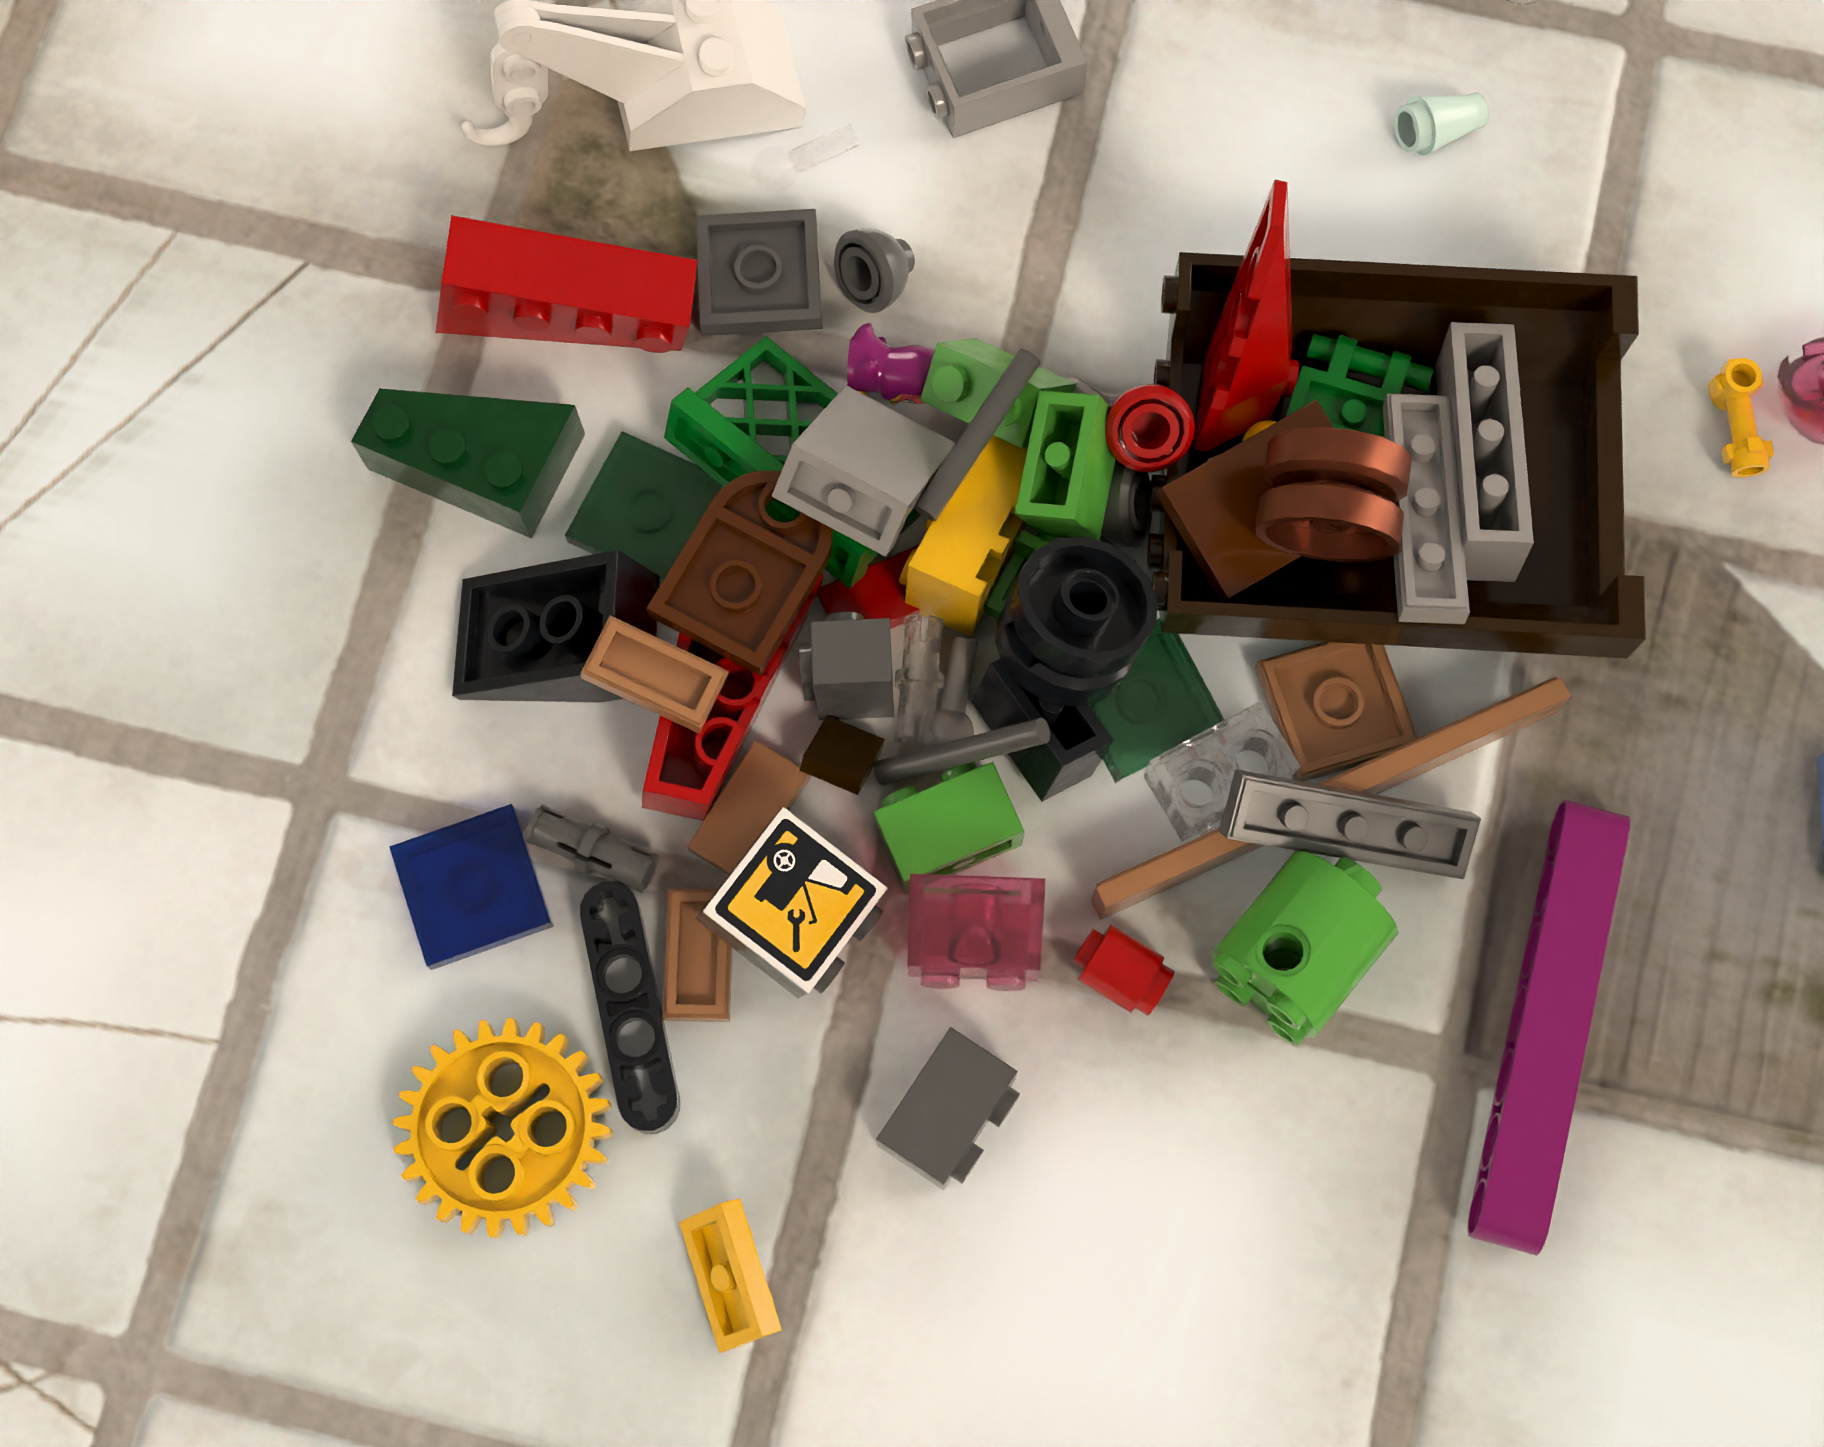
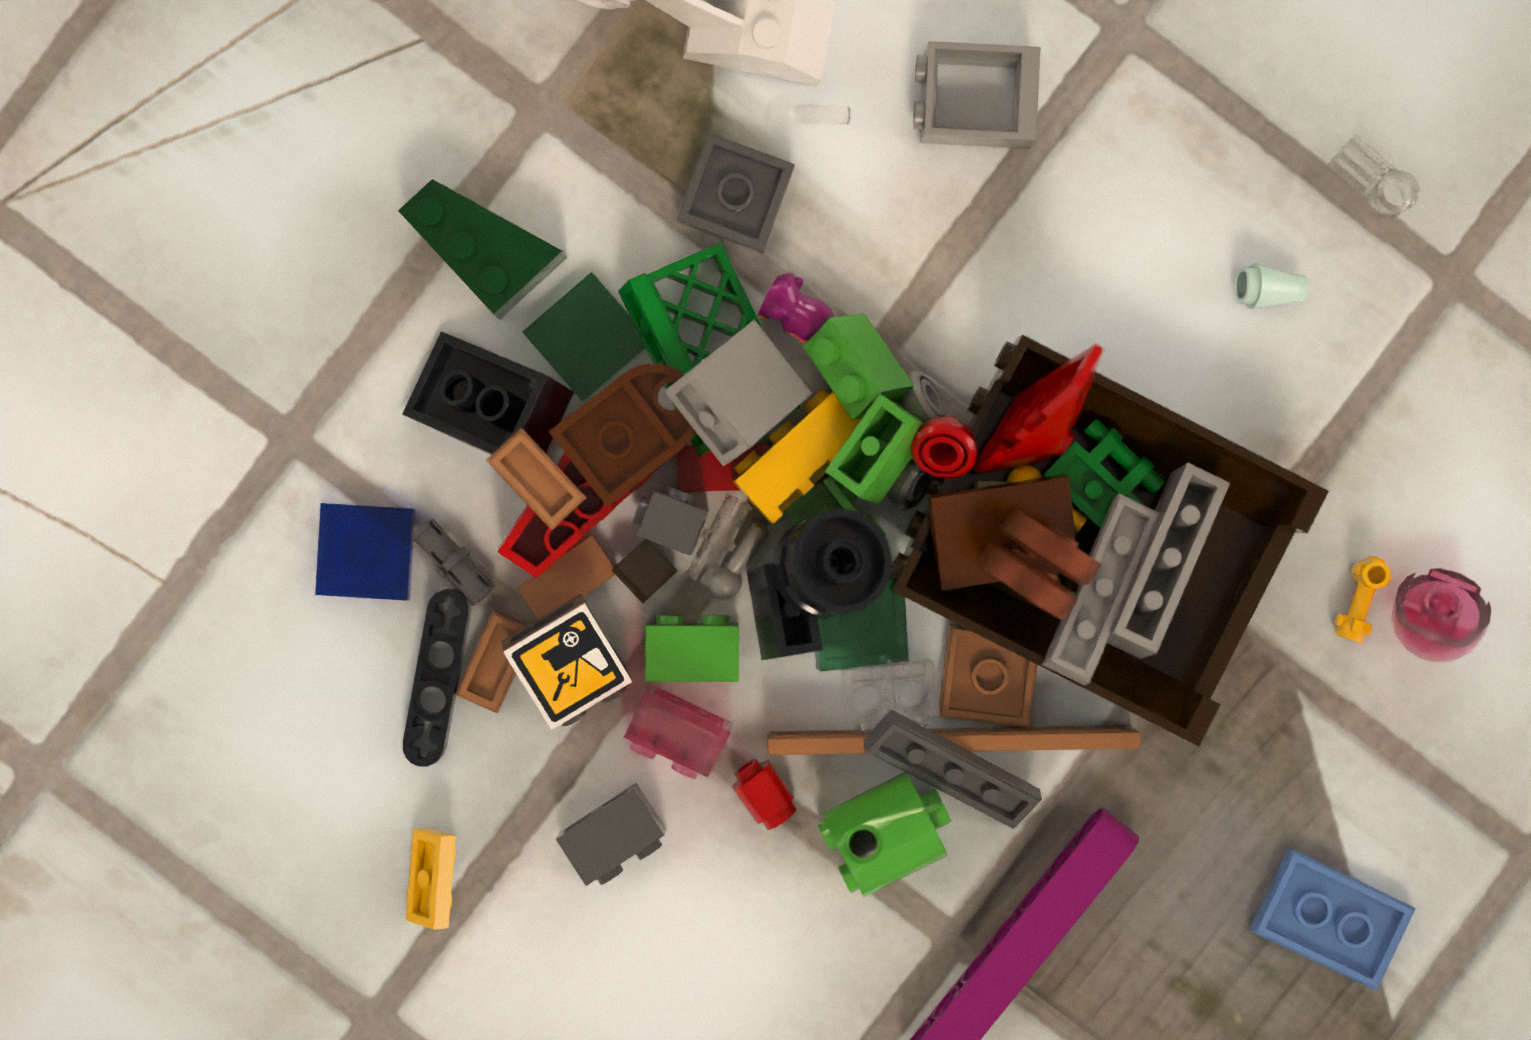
camera: 20 degrees right, 15 degrees up
(466, 1082) = (311, 685): yellow gear -> none
(562, 289) = (592, 153): red wedge -> none
(872, 268) = (816, 227): dark grey brick -> none
(962, 751) = (721, 610): dark grey bar -> none
(977, 434) = (823, 407): dark grey bar -> none

